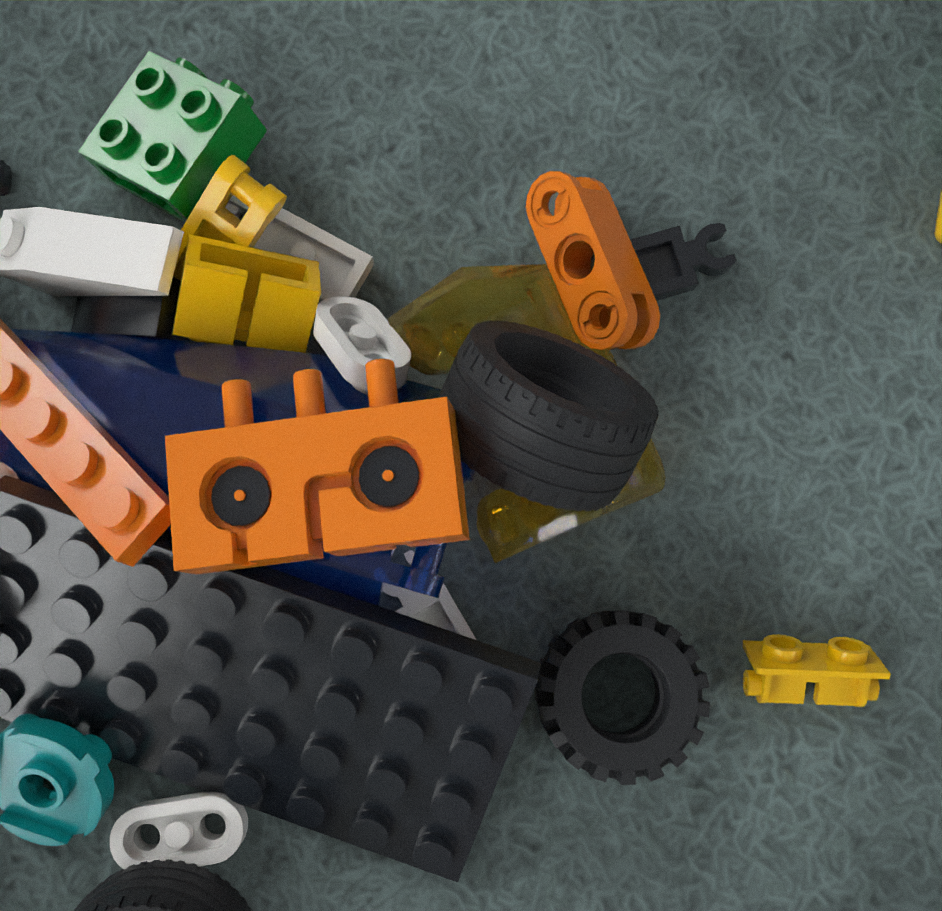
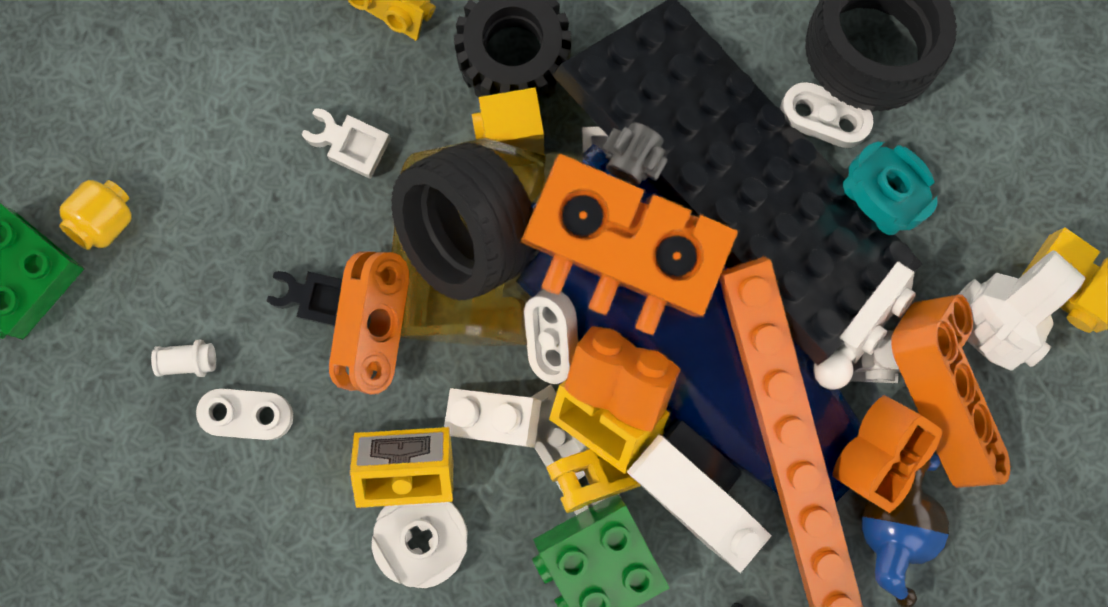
camera: 150 degrees left, 0 degrees up
(235, 330) = (621, 378): none -> orange brick
(369, 605) = (635, 154): none -> dark grey gear
(385, 37) = (413, 566): none -> white plate
(387, 234) = (493, 417): none -> white plate
(458, 123) = (402, 467): none -> yellow brick
(565, 581) = (511, 119): none -> yellow brick
(672, 96) = (243, 414): none -> white plate
(739, 464) = (352, 145): none -> white plate
(774, 116) = (184, 359): none -> white pin

